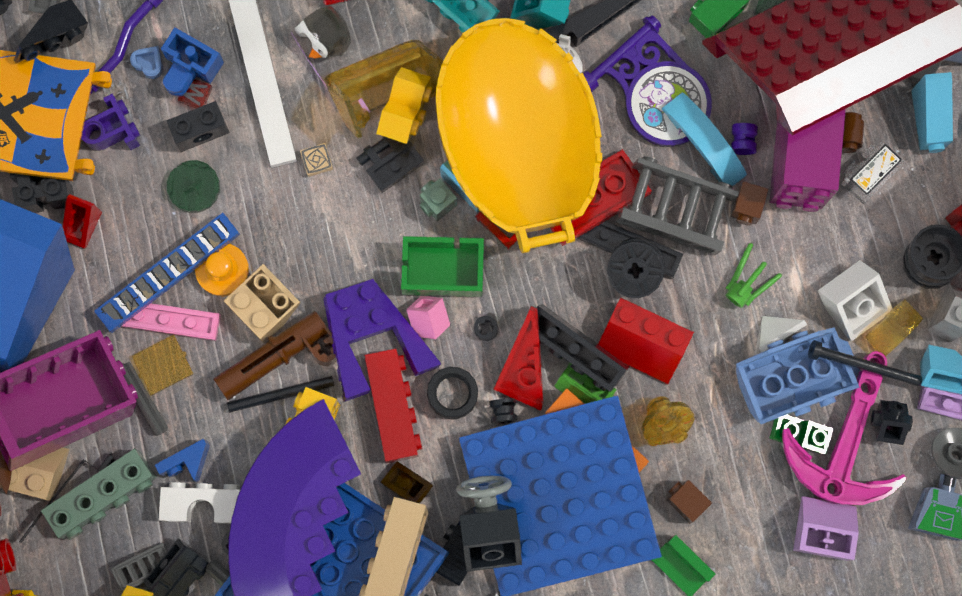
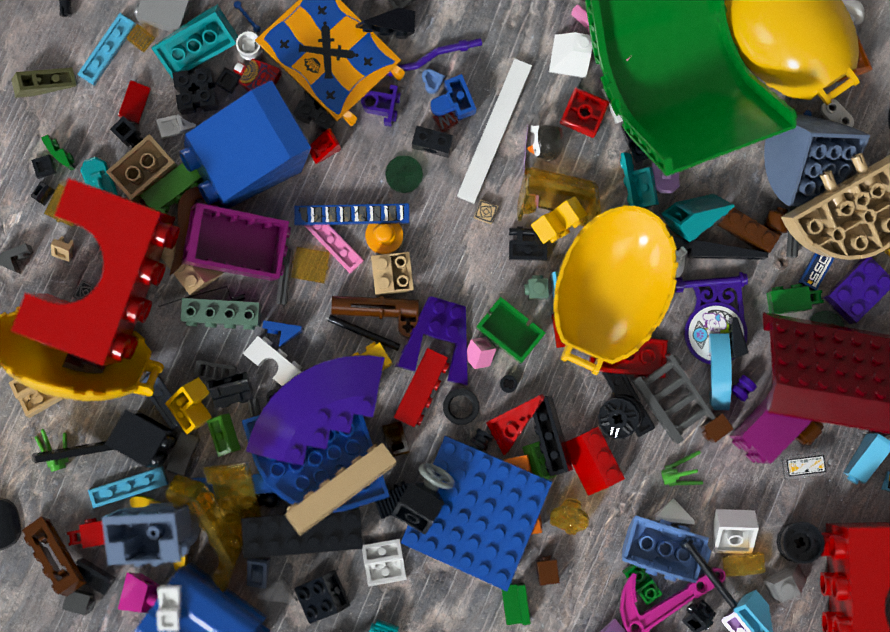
camera: 35 degrees right, 5 degrees up
(696, 90) = (737, 340): none -> black slope

